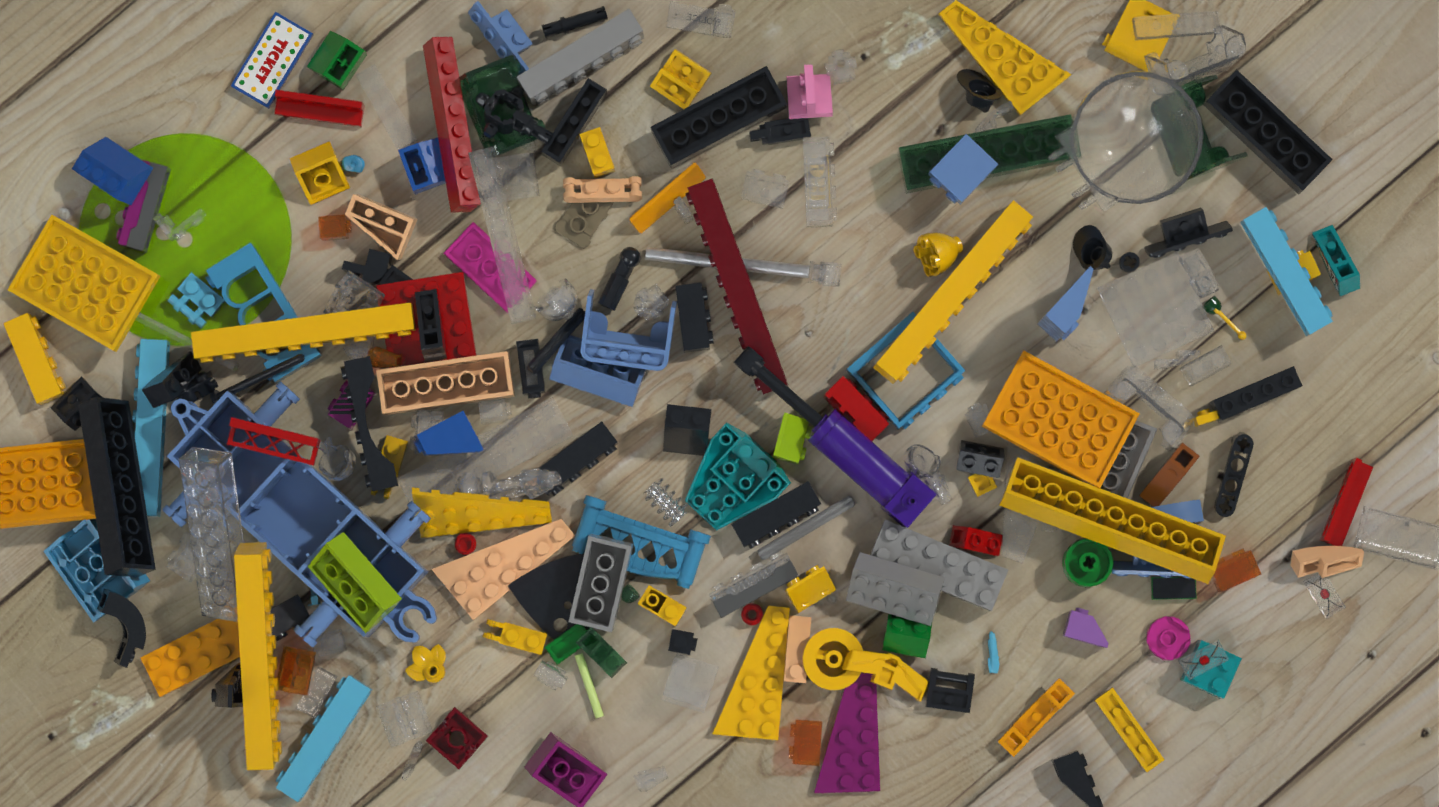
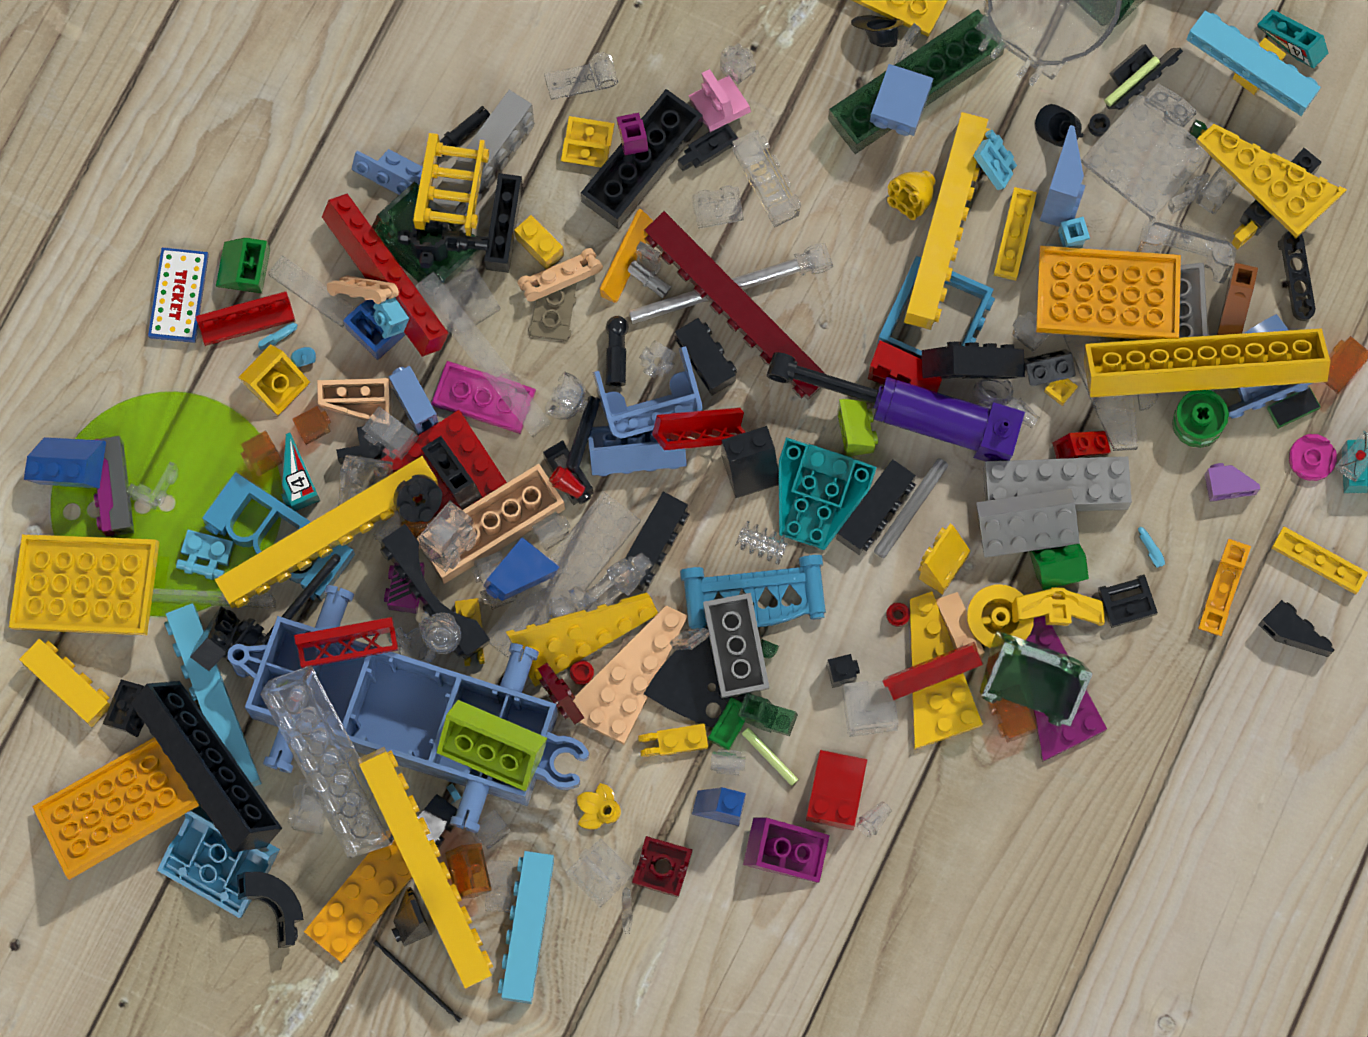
camera: 25 degrees left, 10 degrees down
(215, 739) = (417, 981): none -> black piece
(278, 235) = (260, 454): none -> clear orange brick
(300, 271) = (296, 479): none -> slope
(342, 134) = (277, 336): none -> medium azure piece
(358, 462) = (440, 632): none -> clear hat
(390, 348) = (412, 488): none -> black plate
(392, 269) = (389, 433): none -> clear brick
(398, 387) = (448, 537): none -> clear brick
(427, 130) = (362, 287): none -> light nougat plate
(427, 246) = (413, 399): none -> medium blue brick
(436, 557) = (559, 694): none -> dark red brick
(438, 166) = (390, 317): none -> medium azure brick
(517, 73) = (432, 170): none -> yellow fence
(522, 378) = (565, 481): none -> red cone
(526, 710) = (720, 805): none -> blue slope
(565, 559) = (689, 639): none -> clear tile
(631, 739) = (836, 790): none -> red slope
(656, 378) = (698, 426): none -> red fence
(662, 605) = (807, 643): yellow slope -> none
(677, 226) = (649, 279): none -> light grey axle
(716, 96) = (632, 134): none -> magenta brick
(754, 584) = (886, 584): piece -> none
(755, 678) = (933, 671): none -> red fence
(837, 724) = (1034, 678): none -> clear green windscreen
(915, 429) = (973, 361): none -> black wedge
(1009, 327) = (1015, 233): none -> yellow plate
(1018, 260) = (995, 160): none -> medium azure plate
(1058, 352) = (1073, 233): none -> medium azure brick
(1175, 237) = (1132, 81): none -> yellowish green bar
(1253, 393) = (1277, 184): none -> yellow wing

